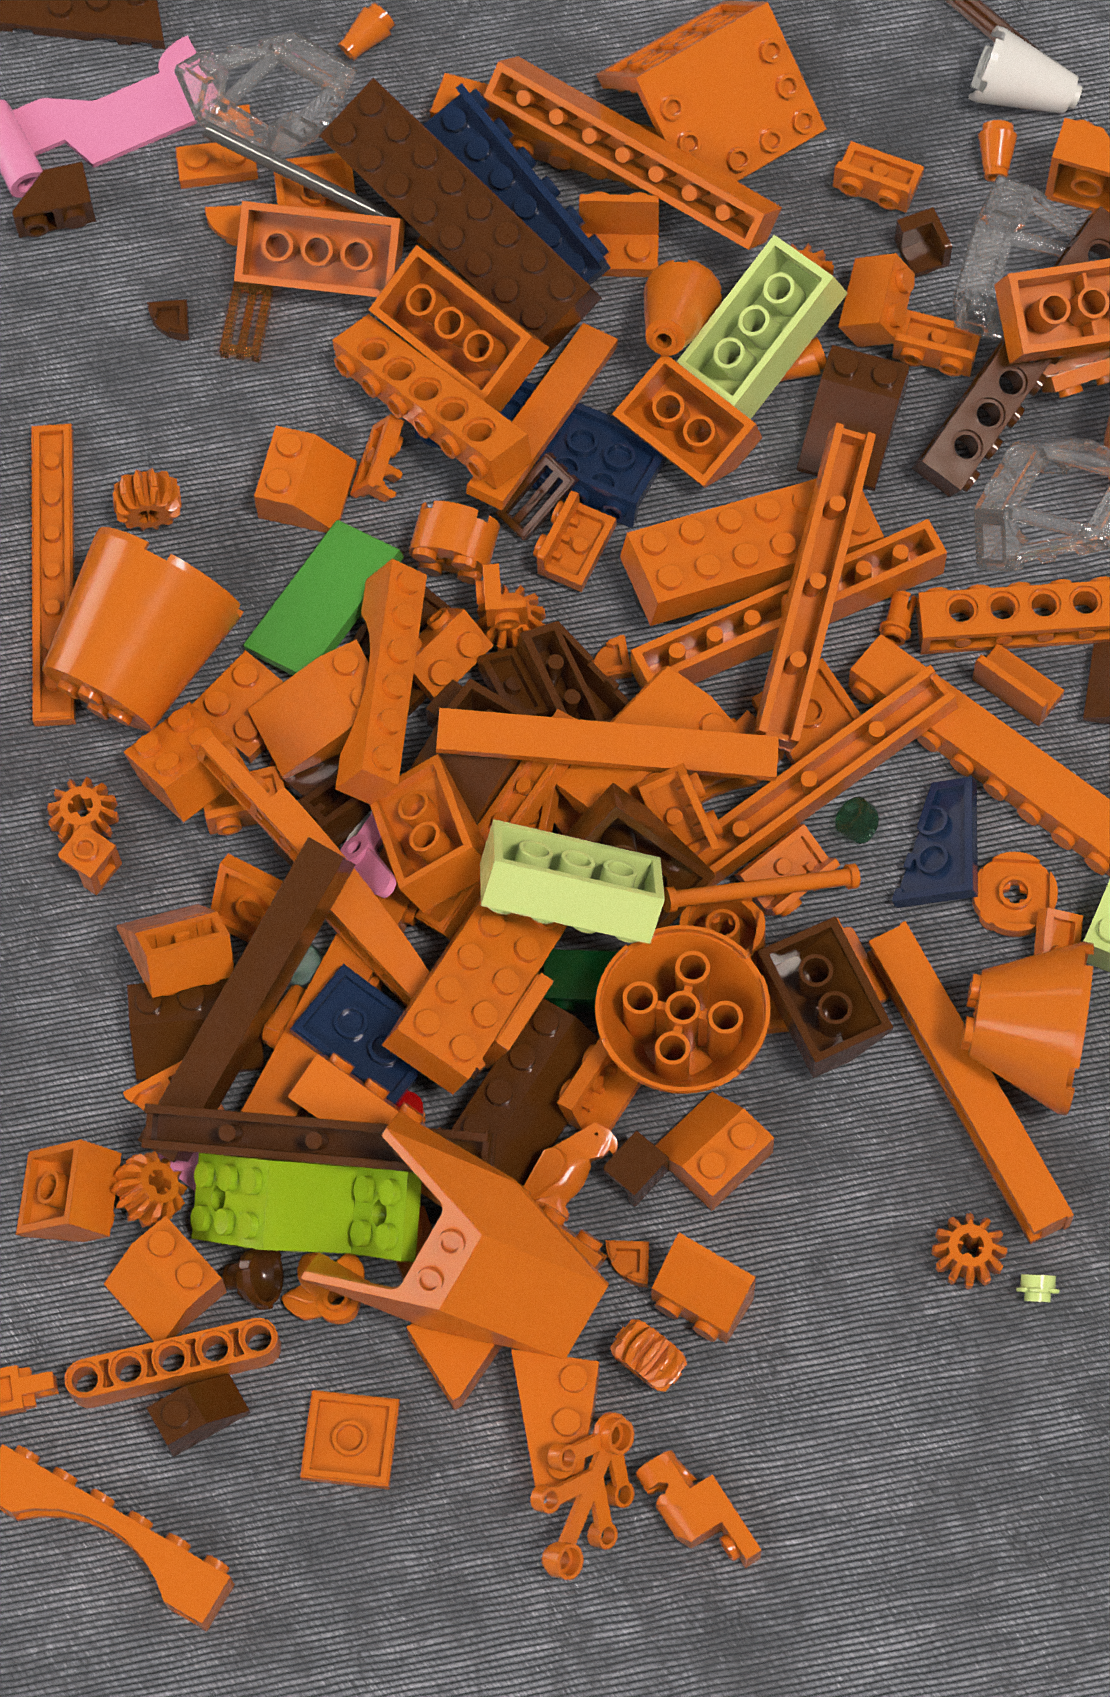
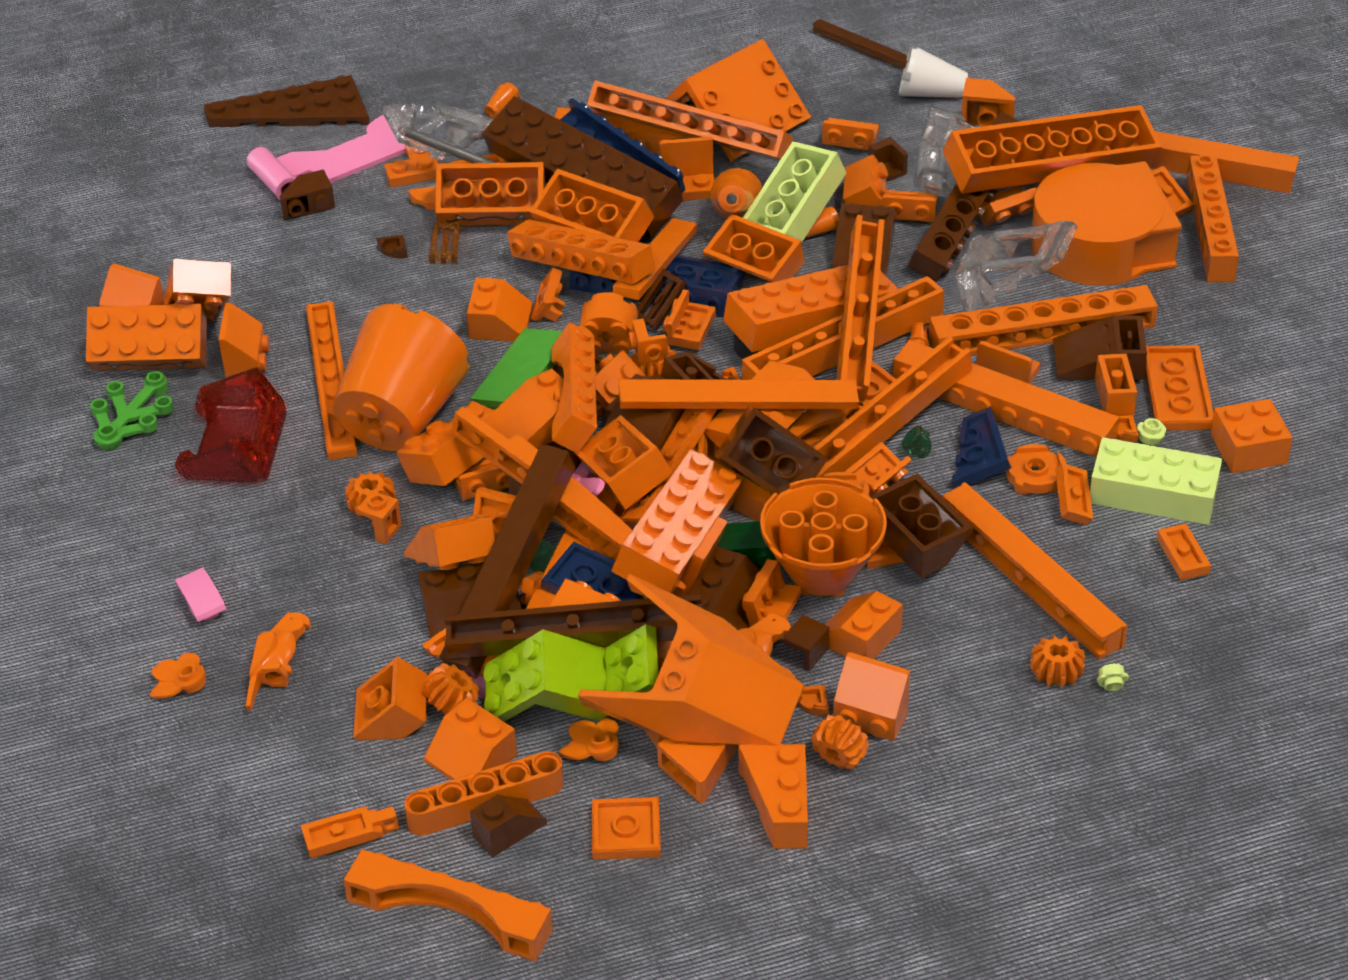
camera: 10 degrees left, 25 degrees down
(256, 1277) = (537, 733): reddish brown piece -> none
(571, 882) = (731, 453): yellowish green brick -> none
(608, 1443) = (824, 787): orange plant -> none
(676, 801) = (797, 417): orange bracket -> none
(697, 1510) = (899, 833): orange plate -> none
(847, 877) = (802, 471): orange bar -> none
(997, 148) = (919, 109): orange cone -> none
(1032, 1021) = (1068, 510): orange cone -> none

